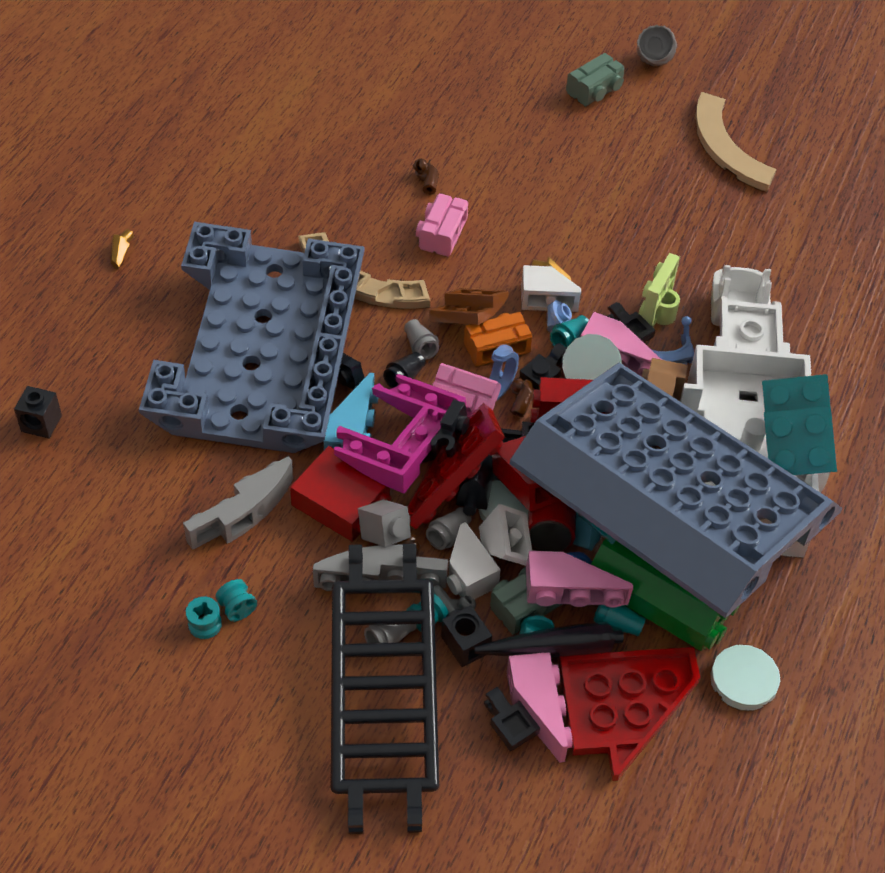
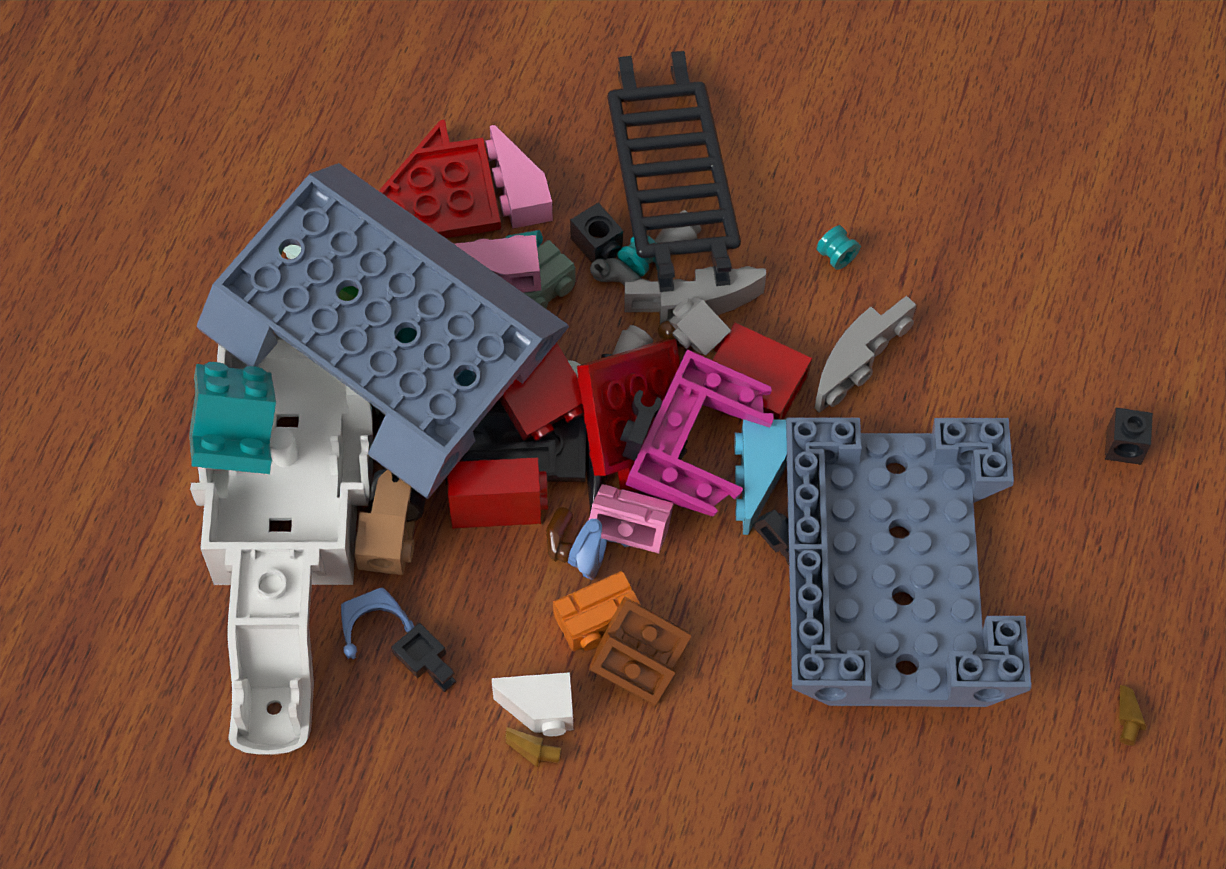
camera: 175 degrees right, 10 degrees up
(206, 626) = (859, 230): teal wheel -> none
(381, 293) = (773, 689): tan tile -> none
(406, 366) = (710, 552): black cone -> none
(421, 339) = (695, 601): light grey cone -> none
(442, 224) = (693, 803): bright pink brick -> none
(471, 566) = (599, 306): white slope -> none
(506, 534) = (562, 301): white slope -> none
(510, 722) = (550, 161): black plate -> none
(544, 367) = (535, 580): black plate -> none
(557, 313) = (519, 662): light blue plate -> none
(559, 641) = (509, 220): black piece -> none
(568, 331) = (503, 637): teal cone -> none
(589, 357) = (473, 576): light aqua tile -> none
(633, 351) = (452, 620): bright pink slope -> none
(661, 300) = (381, 690): yellowish green plate -> none

